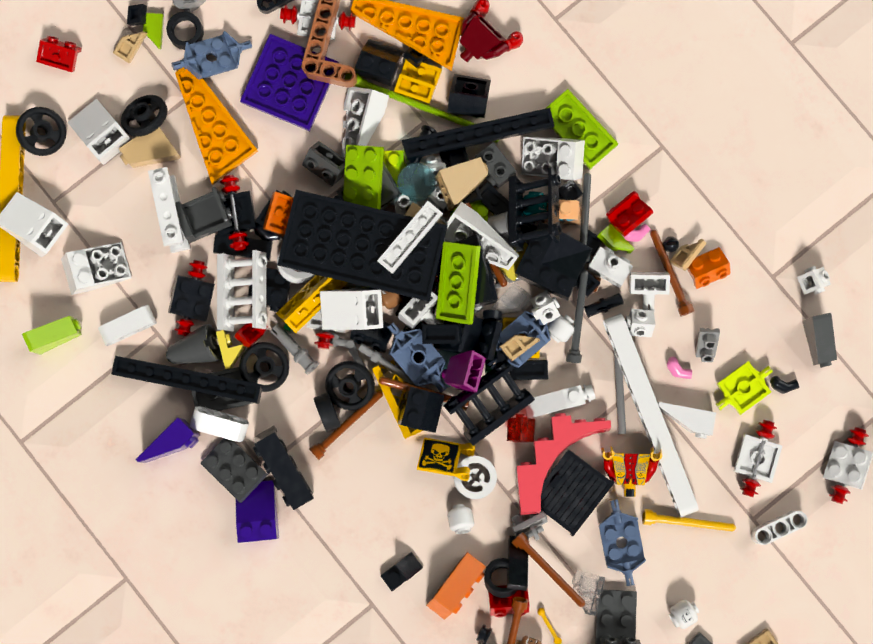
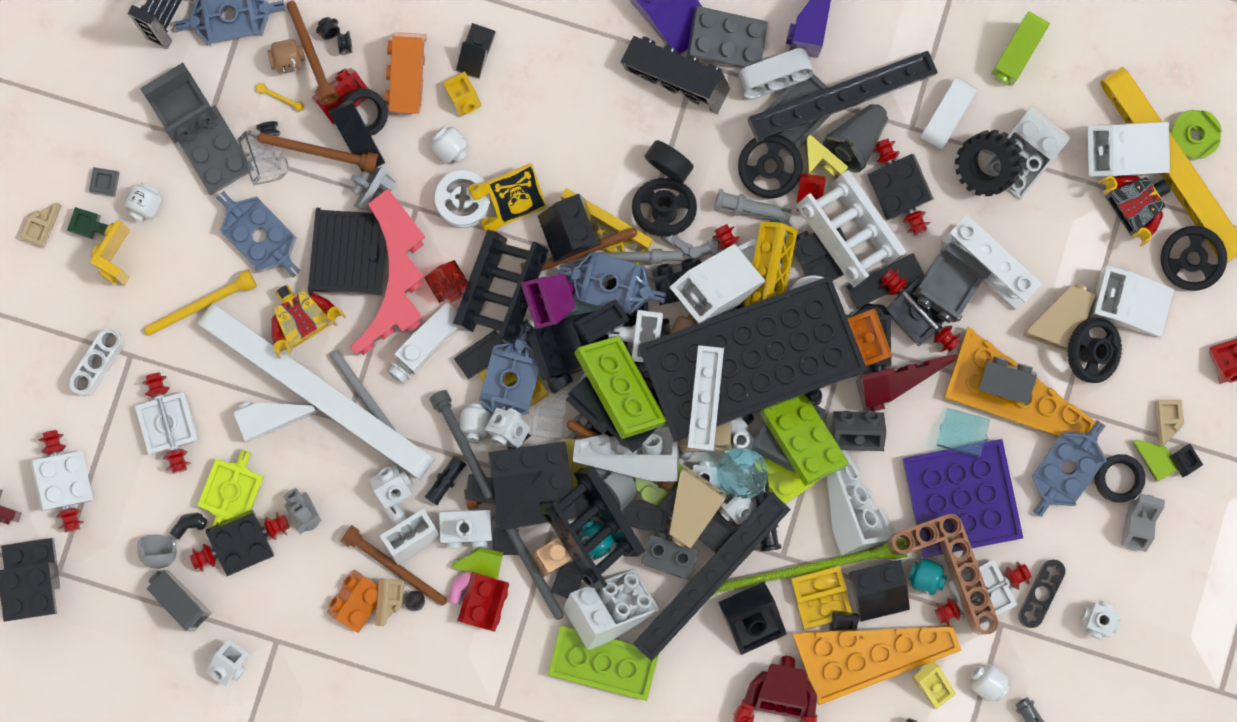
camera: 140 degrees right, 0 degrees up
(51, 187) = (1137, 203): none -> torso
(139, 271) = (970, 168): none -> black tyre
(211, 130) = (1007, 380): none -> dark grey brick
(261, 121) = (963, 432): none -> clear light blue piece
(281, 178) = (887, 385): none -> dark red wedge
(319, 449) = (650, 119): dark orange piece -> none
(344, 49) = (927, 576): none -> teal head
(429, 547) = (462, 94): none -> yellow bracket
(517, 345) = (509, 366): tan tile -> none
(571, 608) = (268, 128): none -> black bush
(676, 370) = (318, 462): bright pink arm -> none
(729, 623) = (86, 223): none -> dark green plate
(735, 582) = (105, 252): none -> yellow bracket
(758, 351) = (239, 542): none -> black plate
(814, 380) = (156, 551): none -> light grey hair

